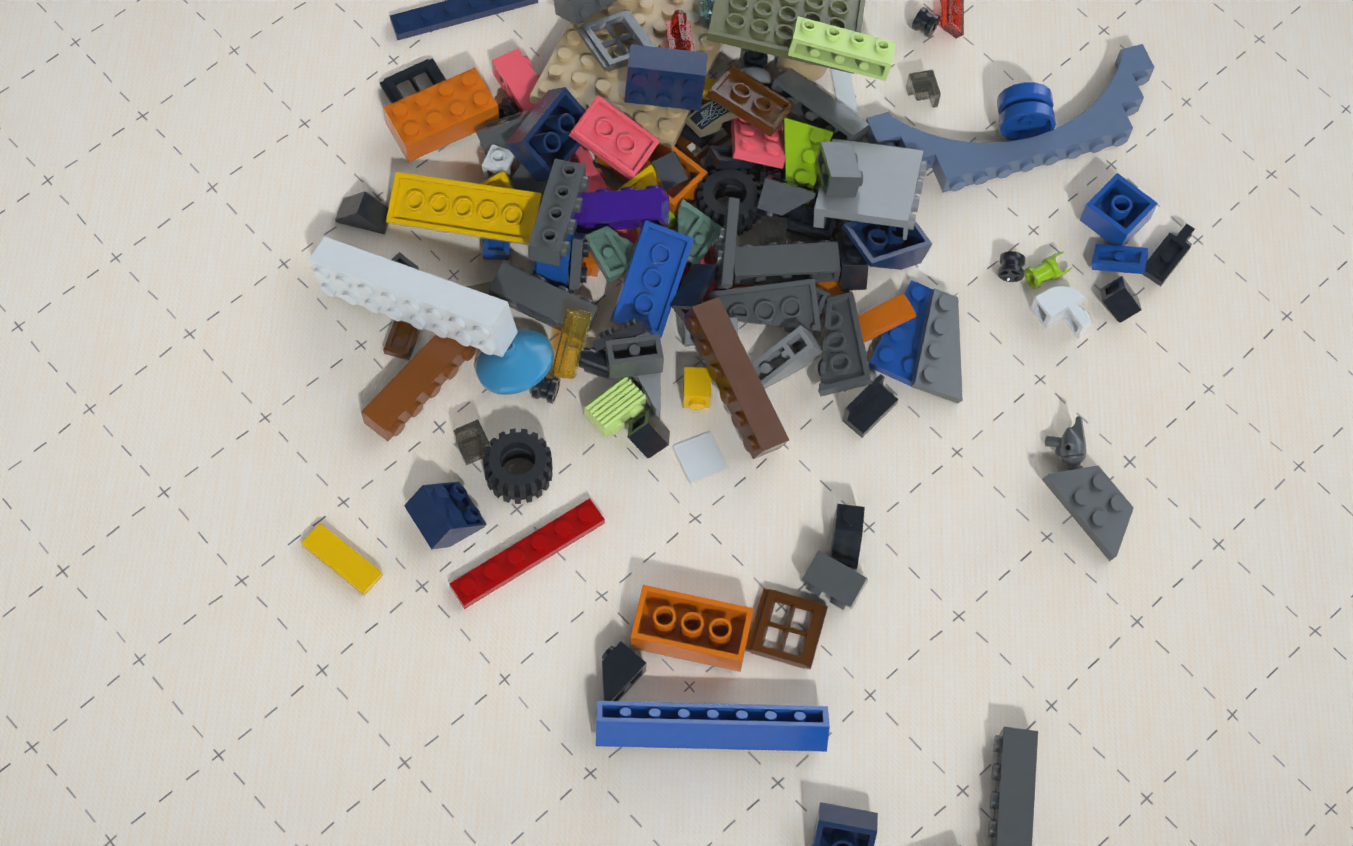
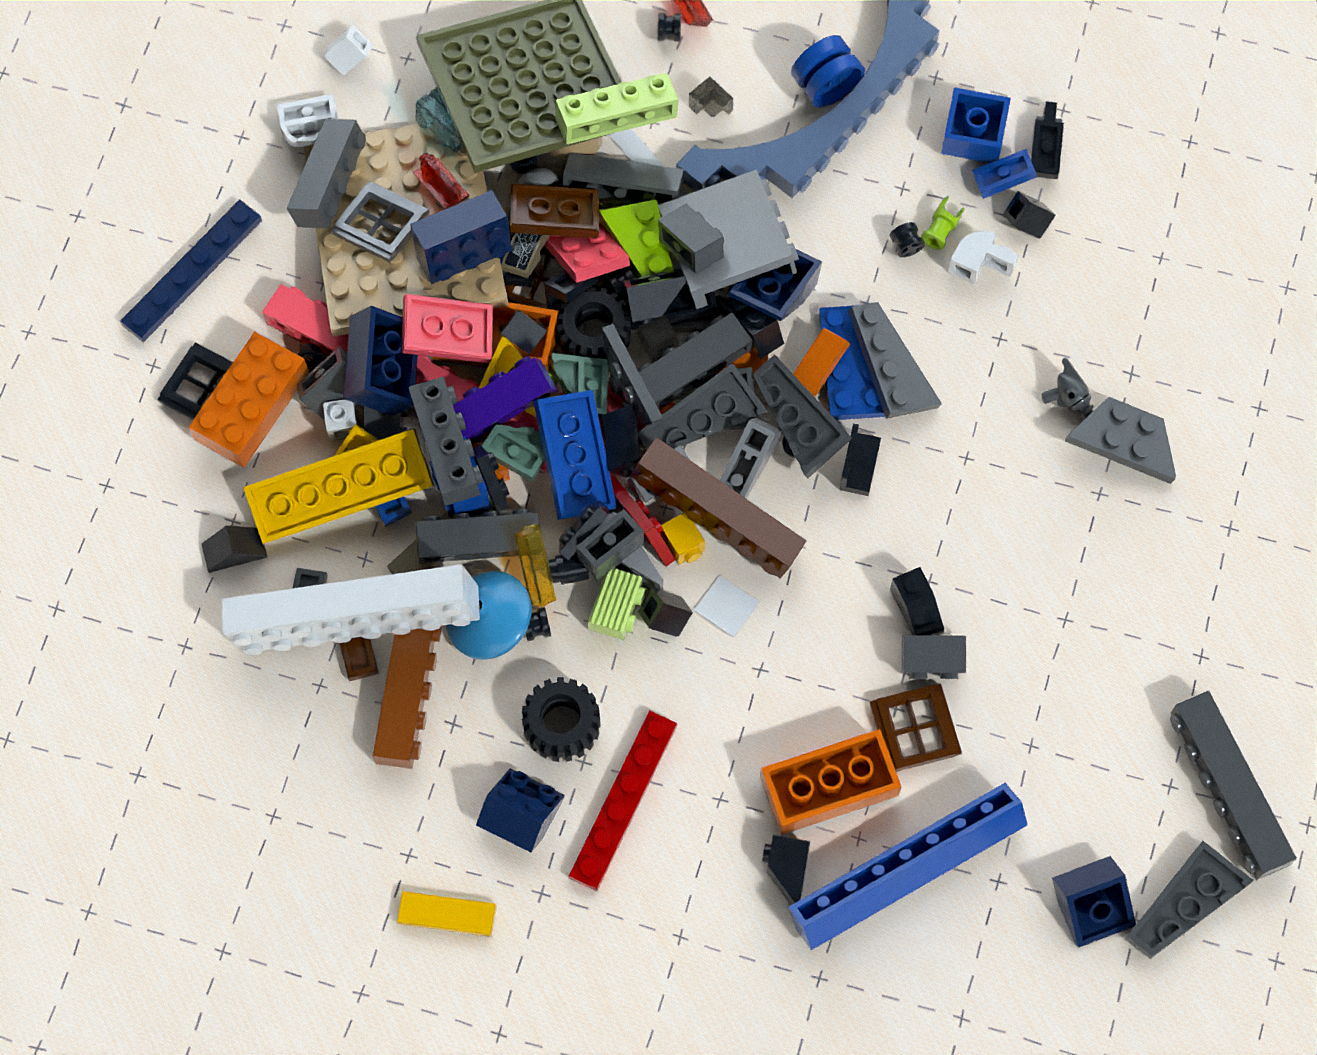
camera: 25 degrees left, 5 degrees up
(471, 441) = (499, 722): clear smoke panel -> none
(674, 357) = (650, 526): none -> red wing

